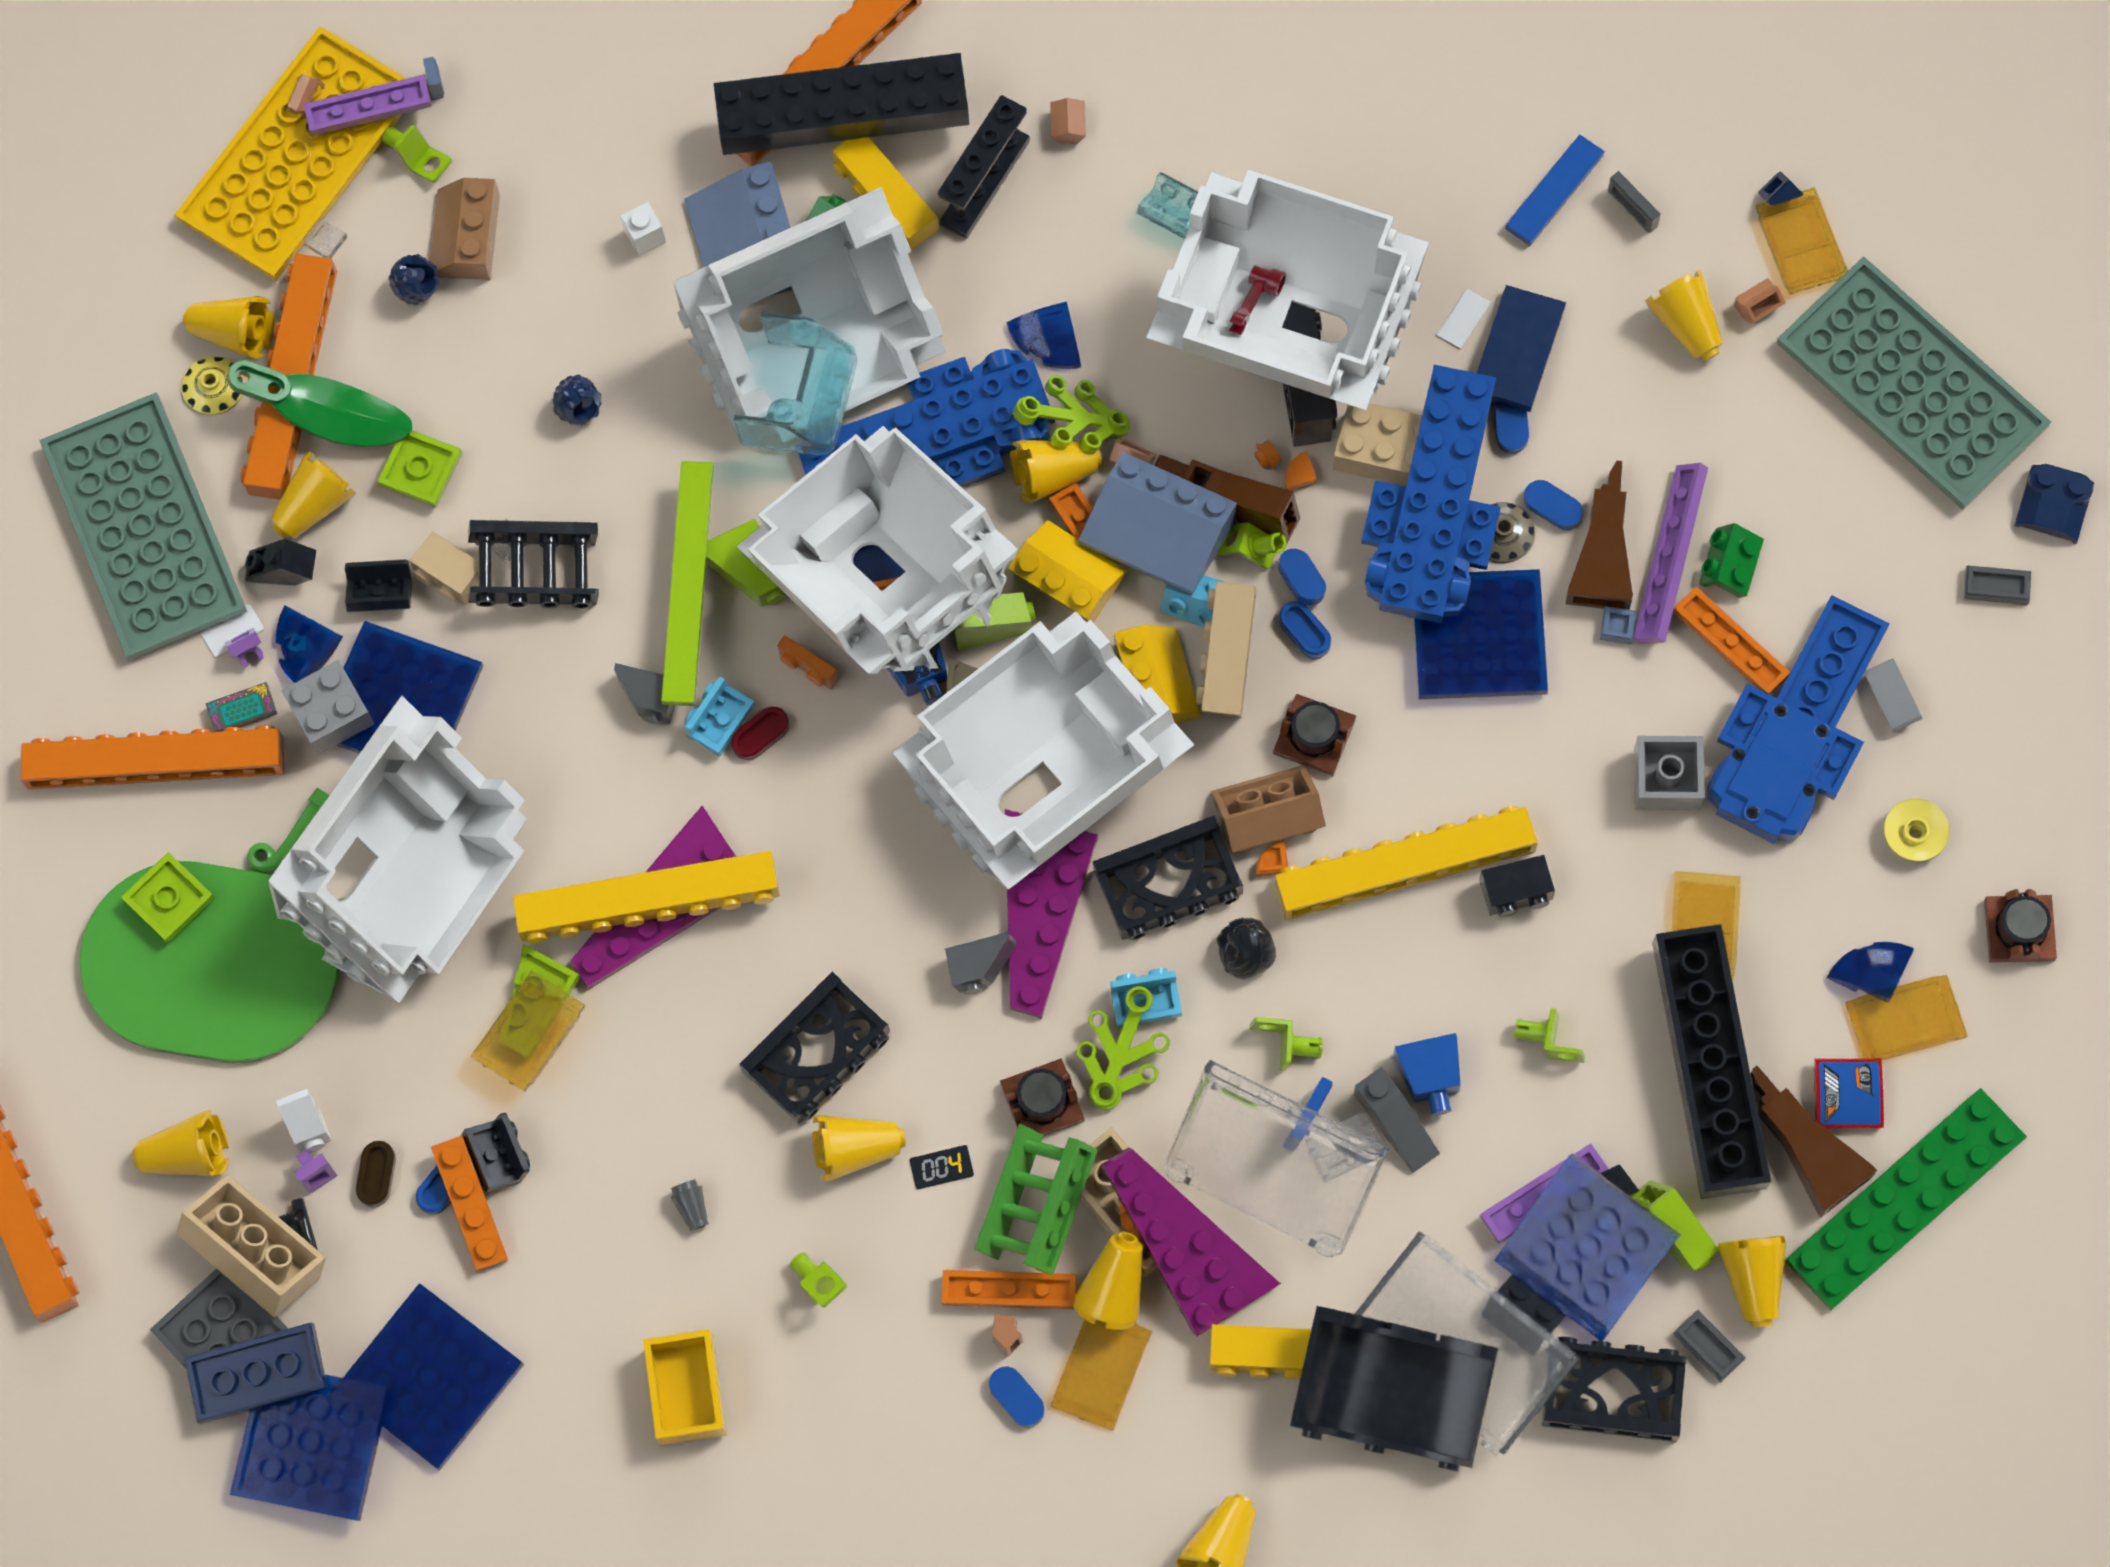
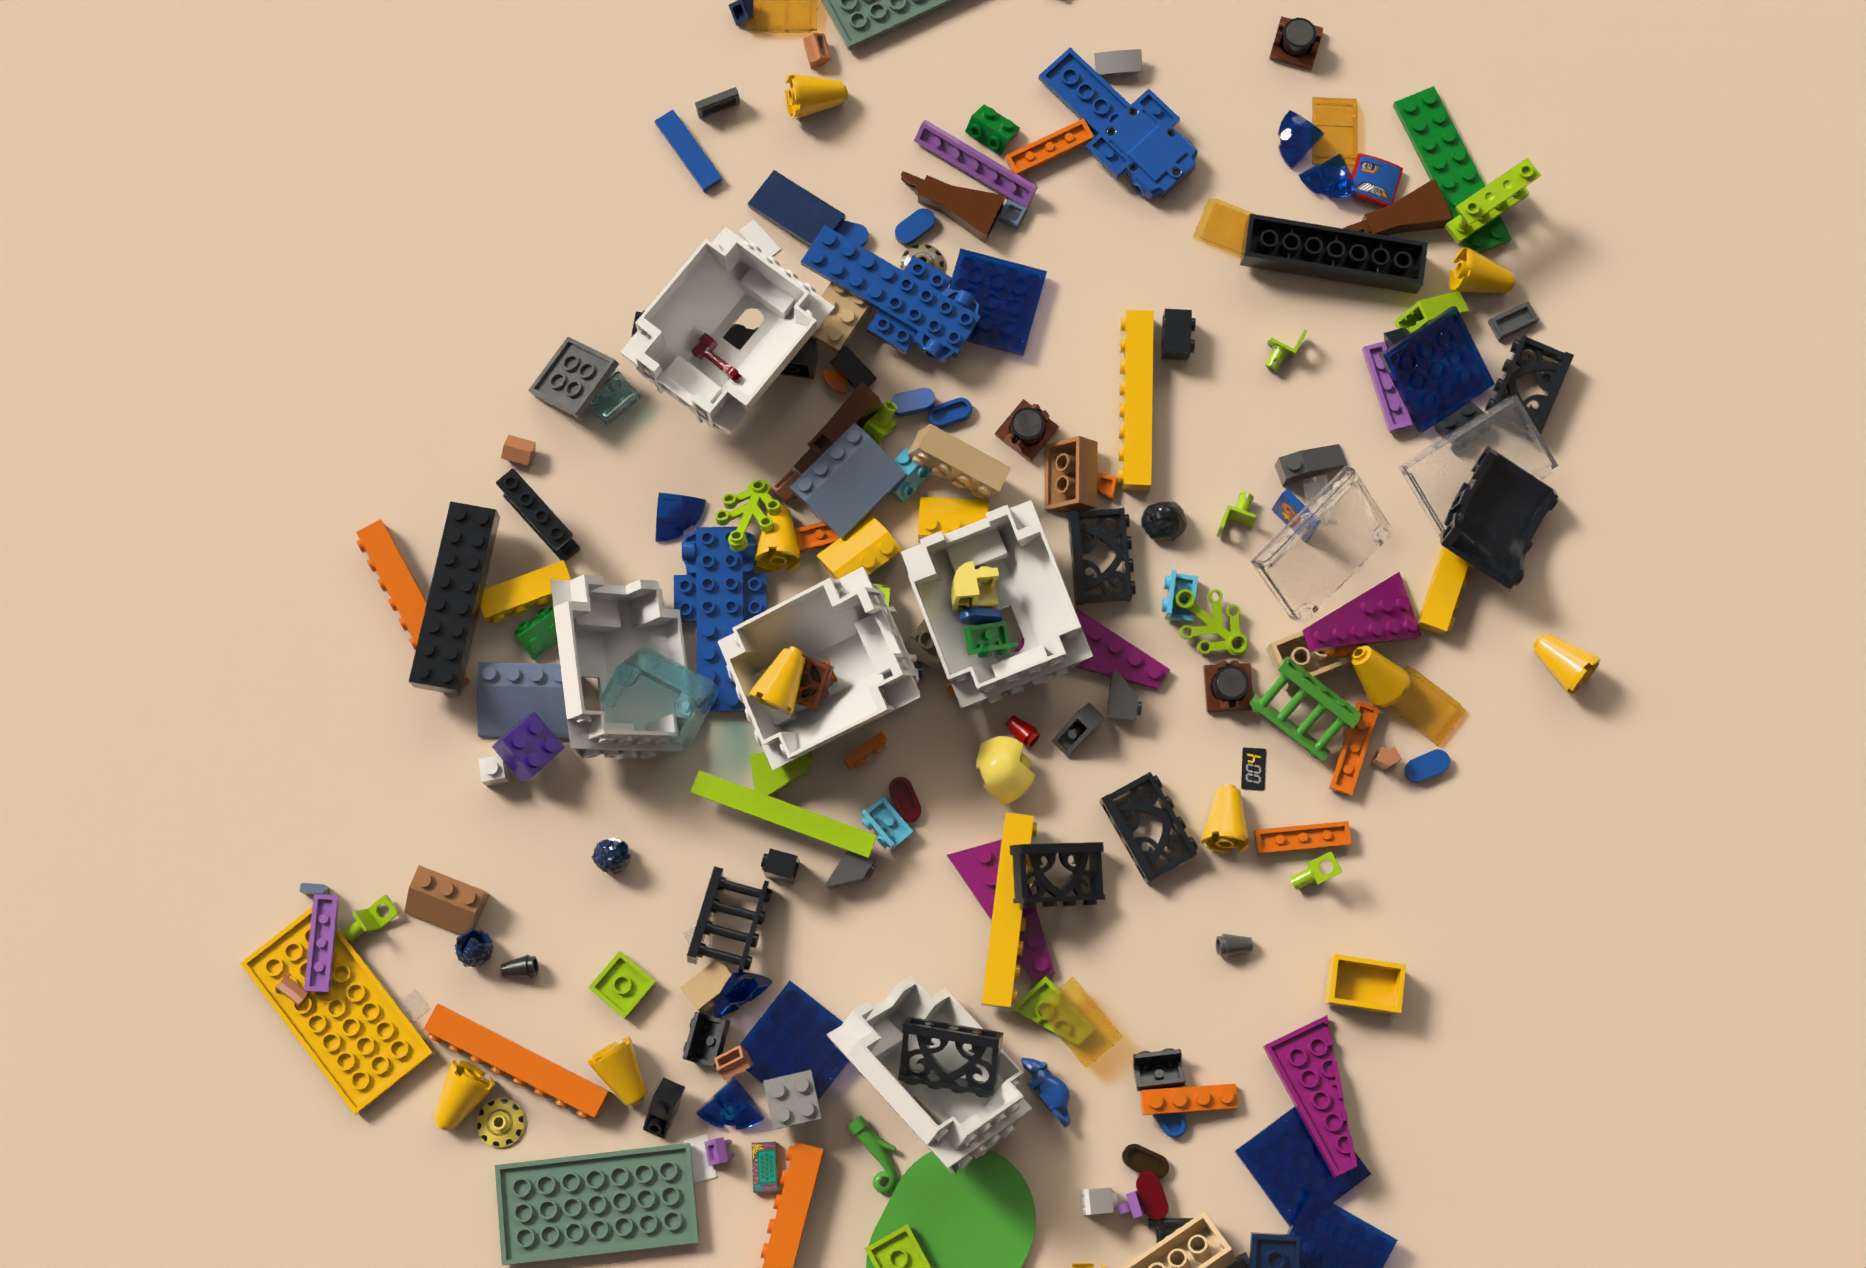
camera: 80 degrees left, 5 degrees up
(324, 406) = (554, 1040): green plant -> none
(333, 1192) = (1152, 1195): none -> dark red tile
(356, 623) = (733, 1062): none -> nougat piece
(406, 862) = (942, 1078): none -> black fence
(407, 345) = (521, 967): none -> pearl dark grey cone
(432, 1028) = (1053, 1090): none -> blue animal
(449, 603) = (738, 991): none -> clear blue brick
(538, 1352) = (1313, 1082): none -> magenta wing
(621, 602) = (780, 866): none -> black brick
(678, 249) = (528, 747): none -> dark purple brick
(722, 898) = (1033, 856): none -> black fence
(834, 838) = (1004, 768): none -> light yellow brick
(846, 511) = (781, 681): none -> yellow cone
(864, 1254) = (1302, 837): none -> orange plate
(868, 550) = (814, 683): none -> copper piece
(895, 852) = (1023, 731): none -> red cone
(921, 920) = (1078, 729): none -> dark grey slope
(1001, 763) = (987, 638): none -> green bracket
(1028, 743) = (979, 615): none -> blue tile
(1057, 719) = (974, 587): none -> light yellow brick
(1183, 148) = (573, 377): none -> dark grey plate
(1267, 455) = (816, 396): orange plate -> none
(1318, 485) = (852, 368): none -> black tile
(1430, 1070) = (1284, 429): blue torso -> none
(1669, 772) = (1130, 214): light grey brick -> none
(1828, 1030) = (1330, 178): none -> clear blue brick
(1863, 1250) = (1492, 201): none -> lime fence
(1925, 818) = (1216, 71): light yellow dish -> none

